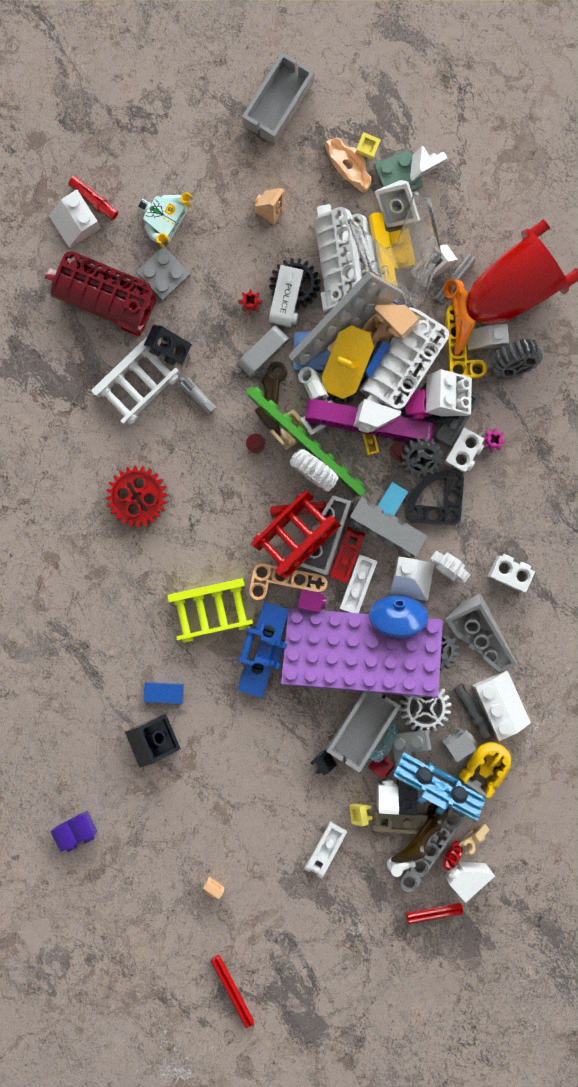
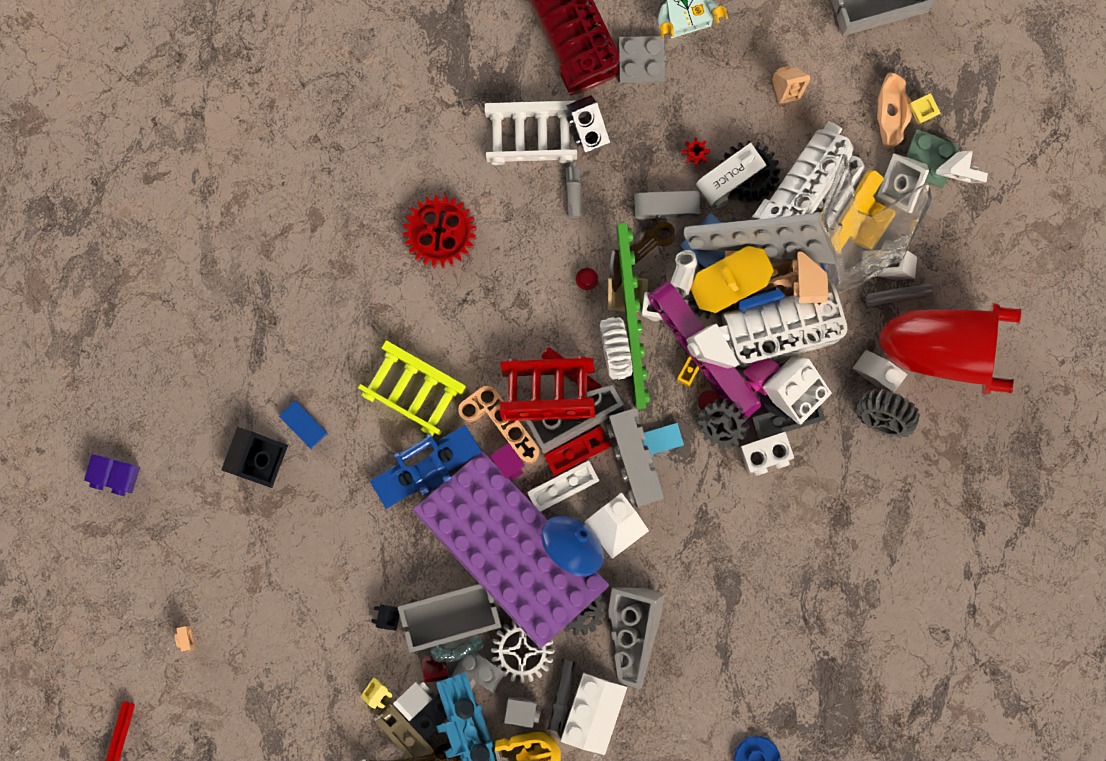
camera: 45 degrees right, 5 degrees down
(326, 849) = (316, 697): white plate -> none
(447, 507) = (707, 491): black beam -> none
(450, 566) = (659, 544): white gear -> none
(460, 361) = (849, 354): yellow beam -> none
(464, 322) = (868, 337): orange piece -> none
(497, 443) = (797, 472): dark pink gear -> none
(509, 578) = (704, 605): white brick -> none

